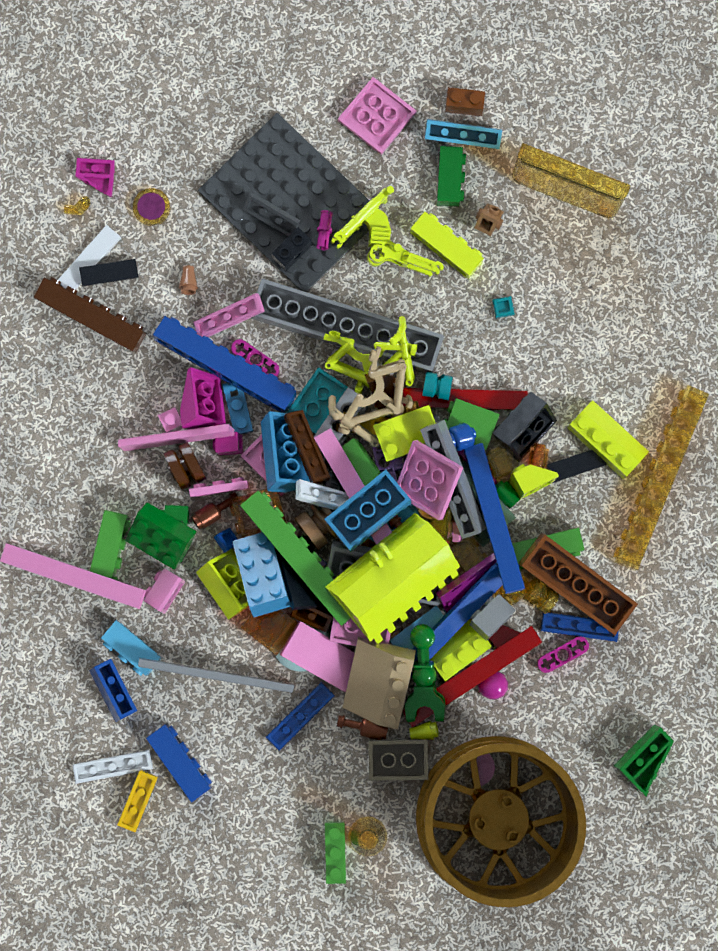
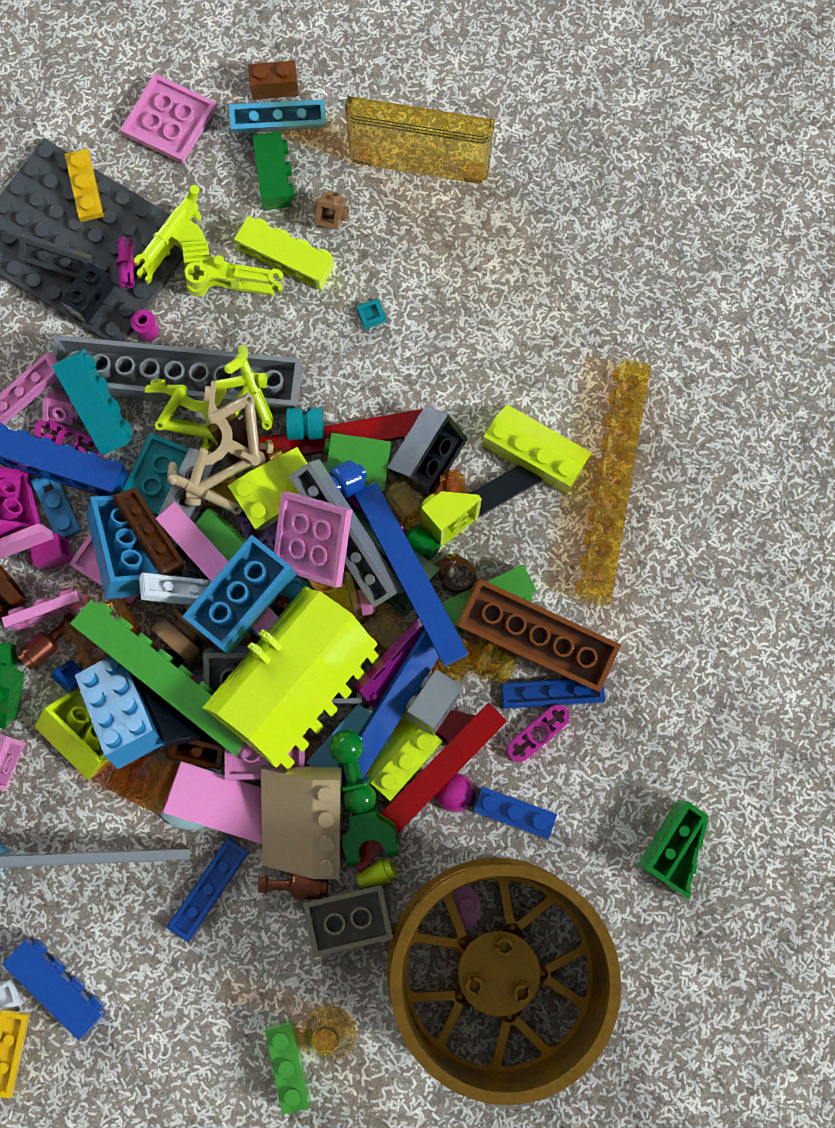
camera: 10 degrees left, 5 degrees down
(256, 333) = (58, 407): none -> bright pink brick
(282, 337) = (93, 401): none -> teal brick
(302, 159) = (84, 185): none -> yellow plate
(329, 287) = (145, 325): none -> dark pink brick
(521, 517) = (449, 562): none -> reddish brown piece
(533, 709) = (515, 813): none -> blue brick

